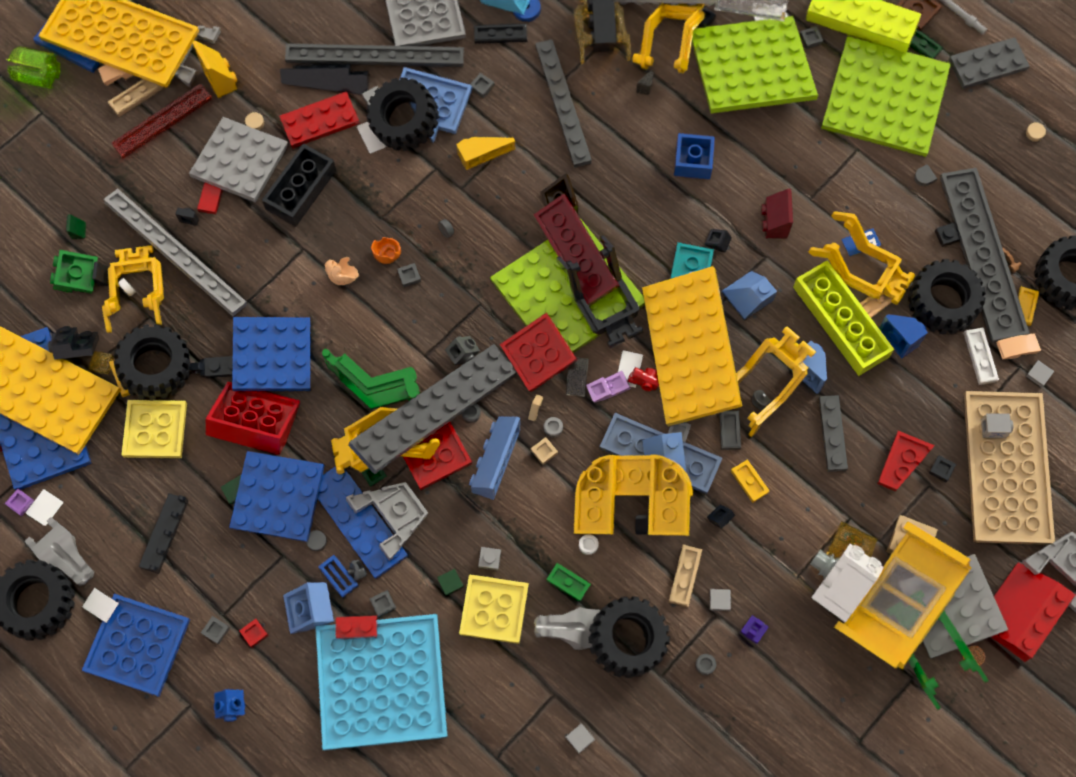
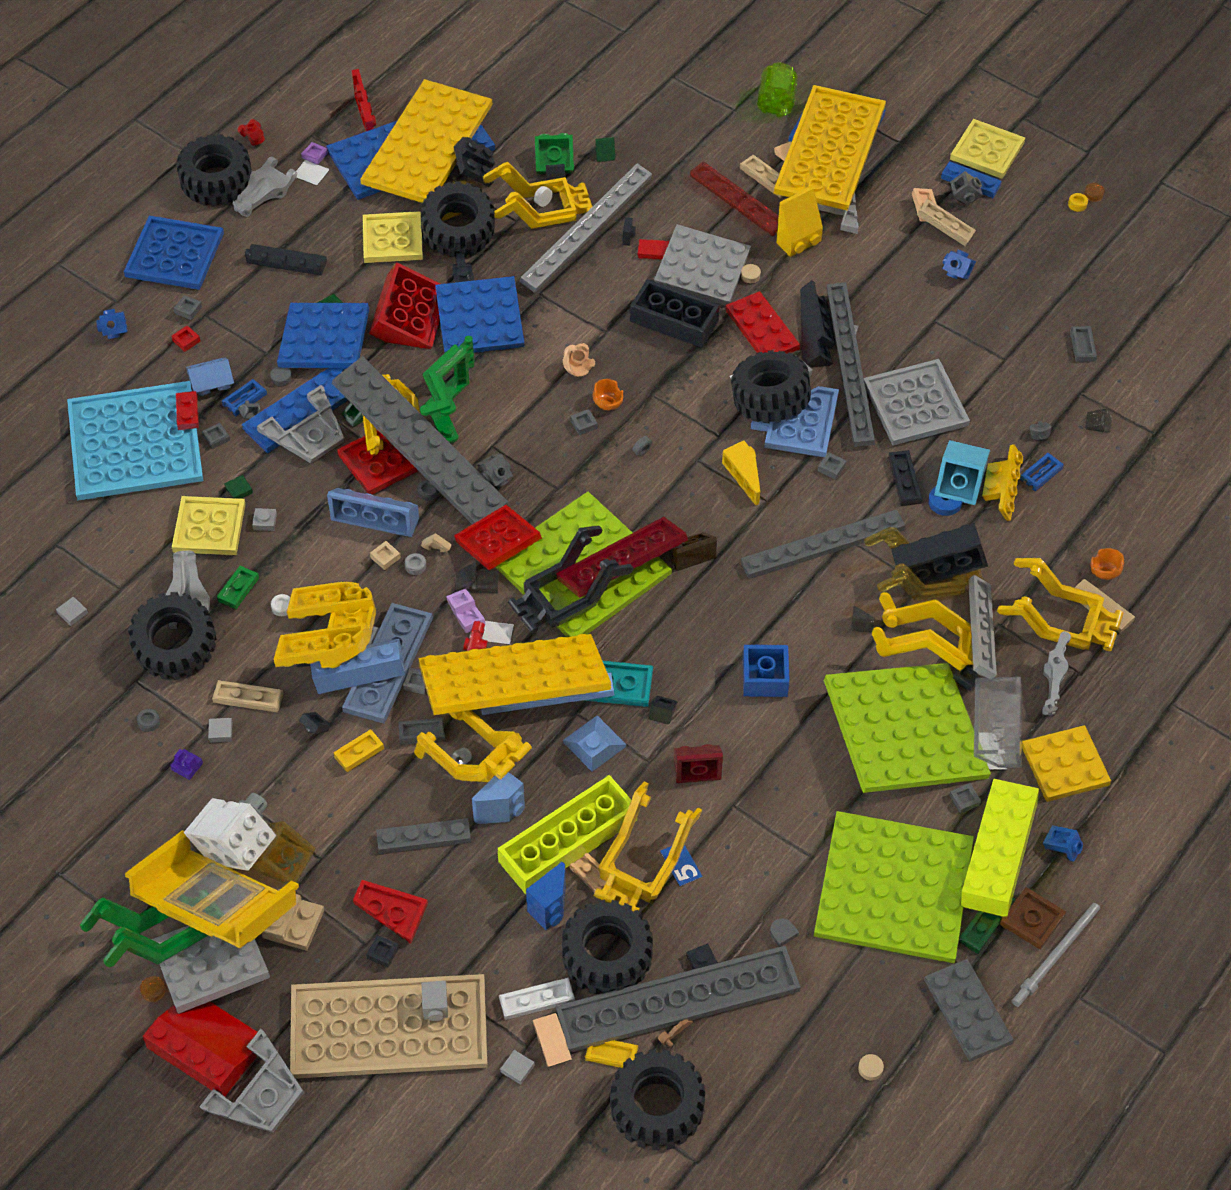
camera: 85 degrees right, 15 degrees down
(100, 605) = (212, 221): white sticker -> none

